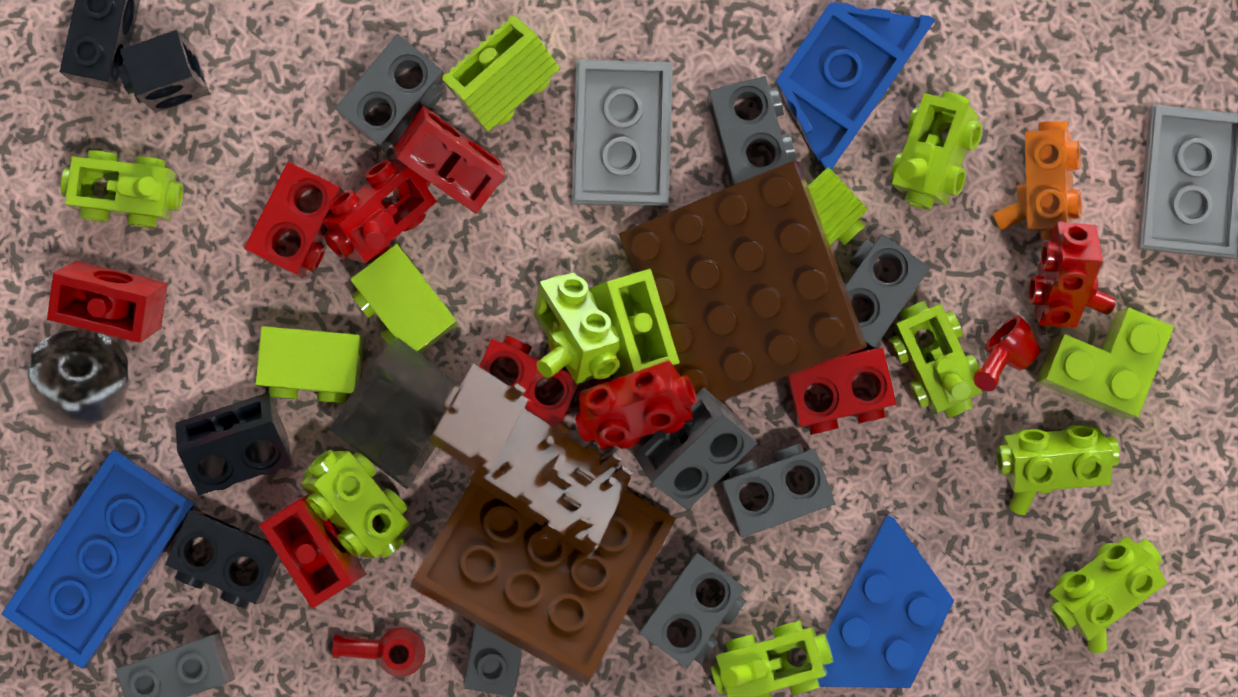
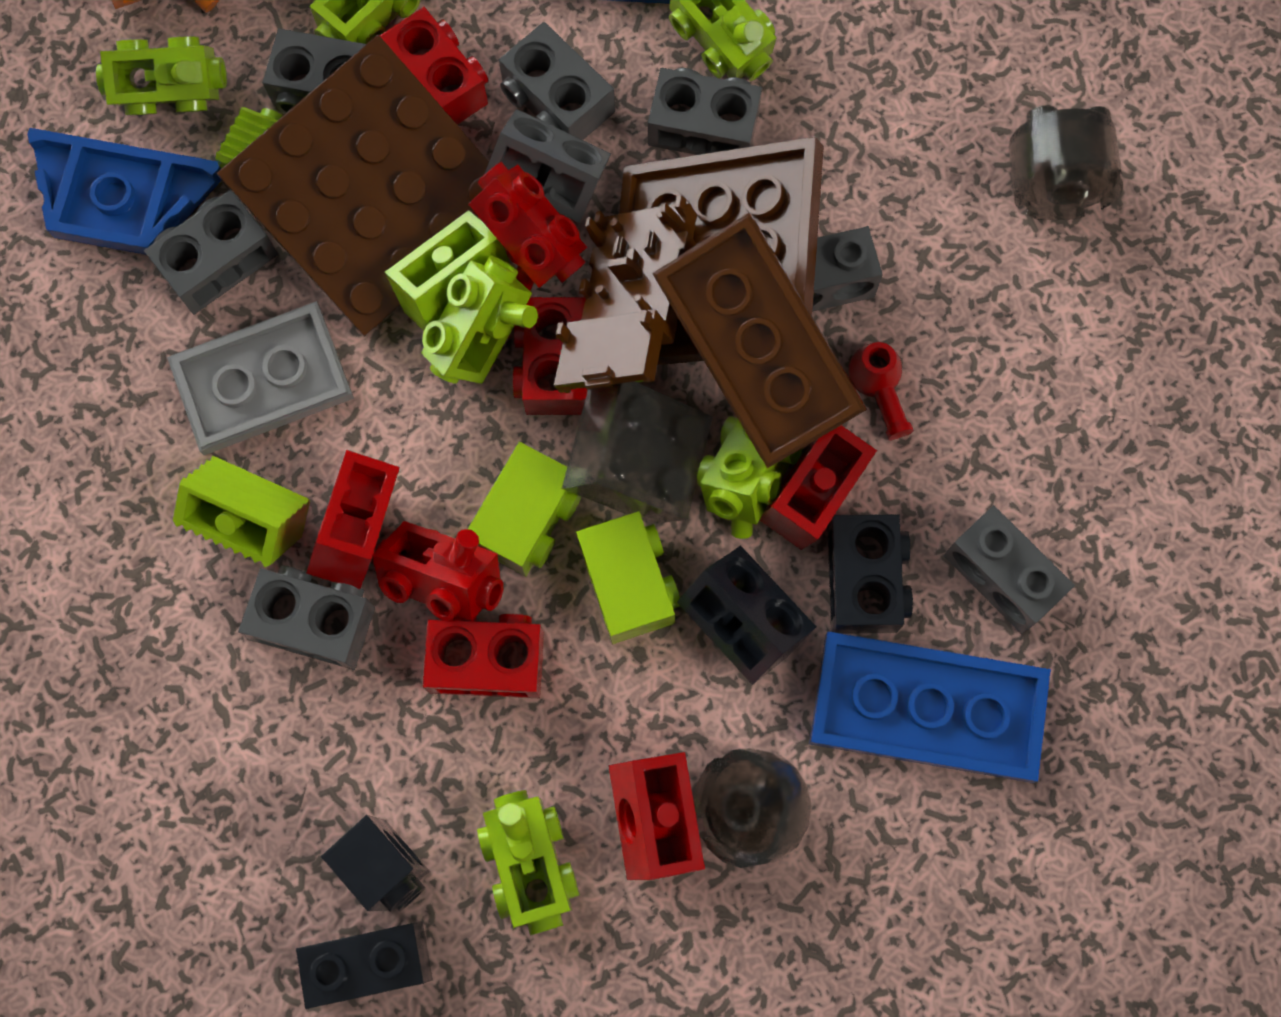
camera: 110 degrees left, 10 degrees down
(429, 546) = (759, 340): none -> reddish brown tile

